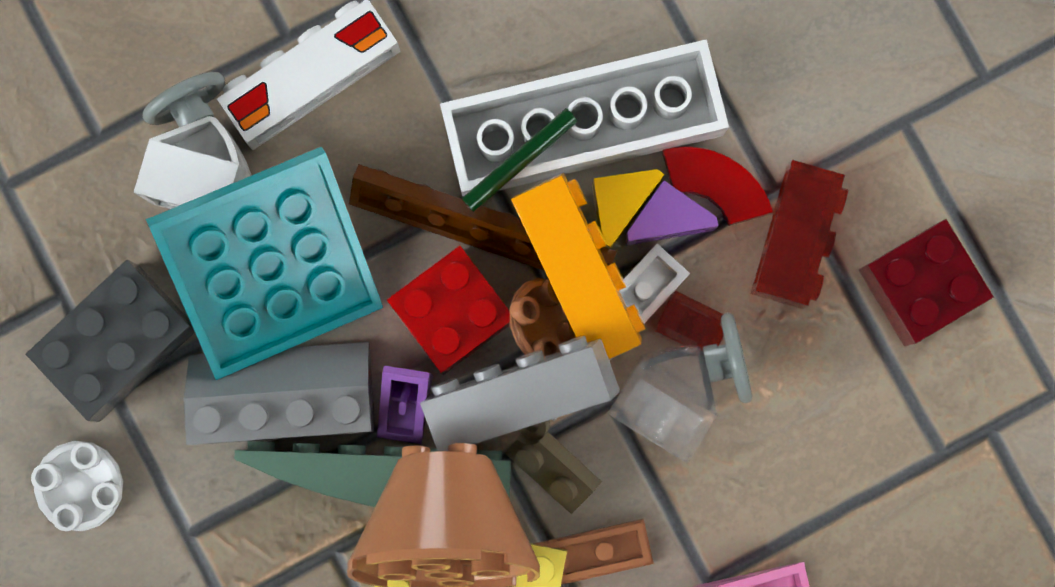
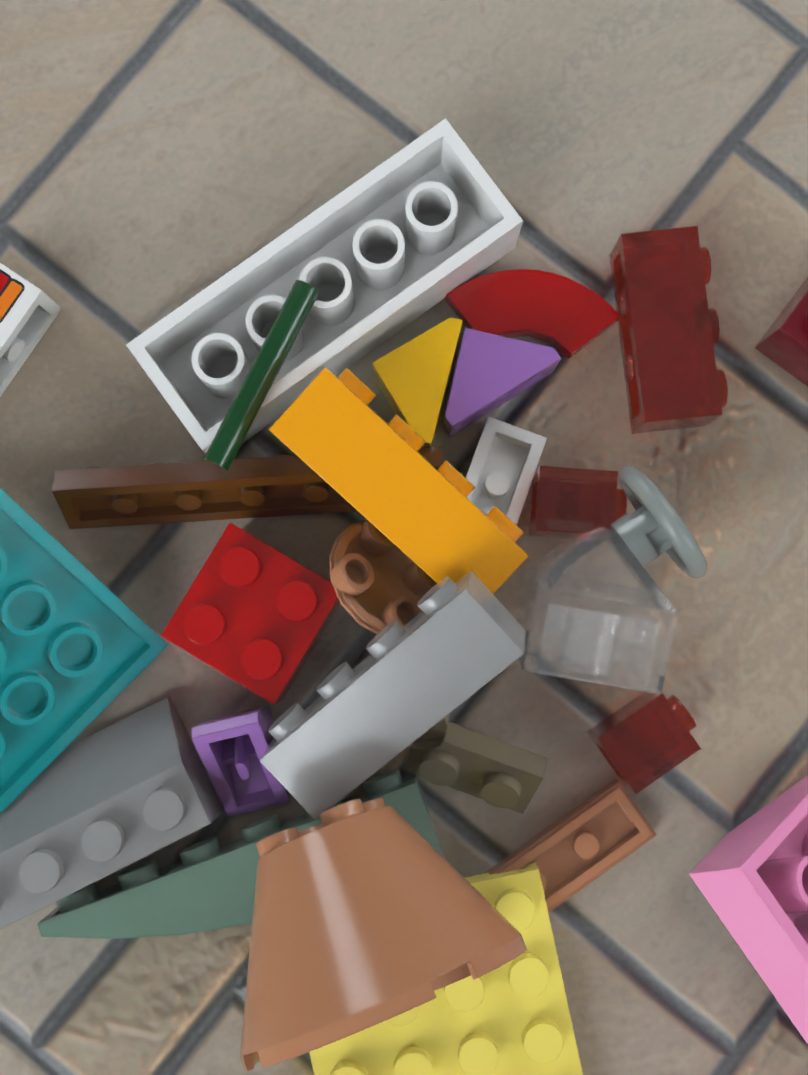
camera: 20 degrees left, 0 degrees up
(671, 496) = (645, 739): none -> clear red brick

